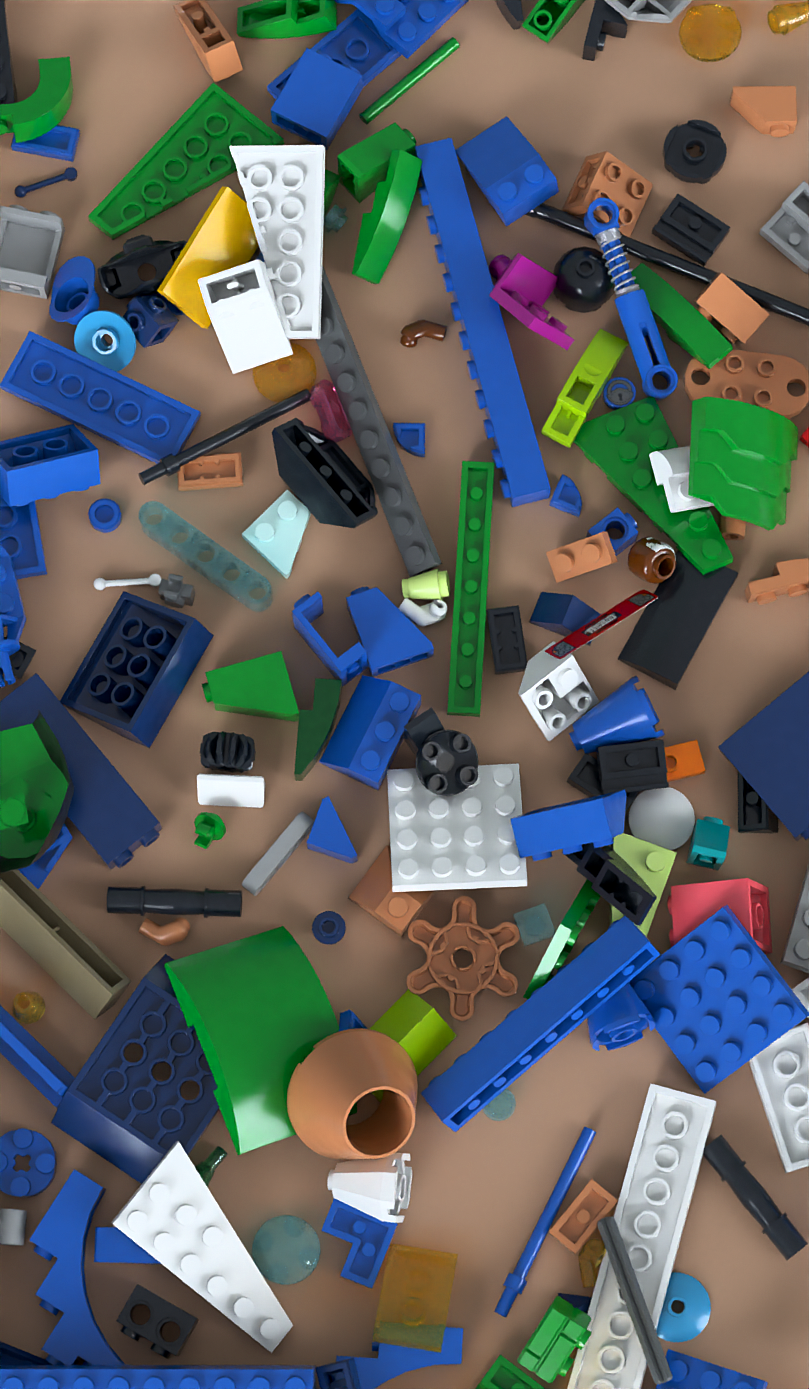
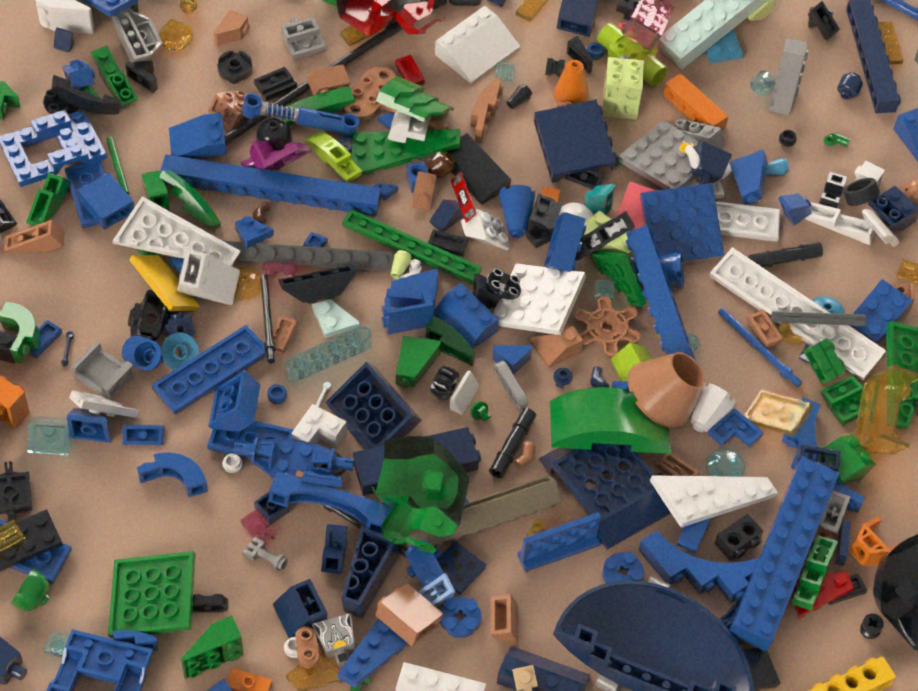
camera: 70 degrees left, 20 degrees down
(66, 597) = (319, 425): none -> white brick
(176, 592) = (342, 373): dark grey plate -> none
(183, 161) = (97, 273): green wing -> none
(239, 1205) = (674, 470): none -> nougat tile
(352, 984) = (596, 379): none -> dark blue arm
(373, 336) = (252, 231): none -> blue wing

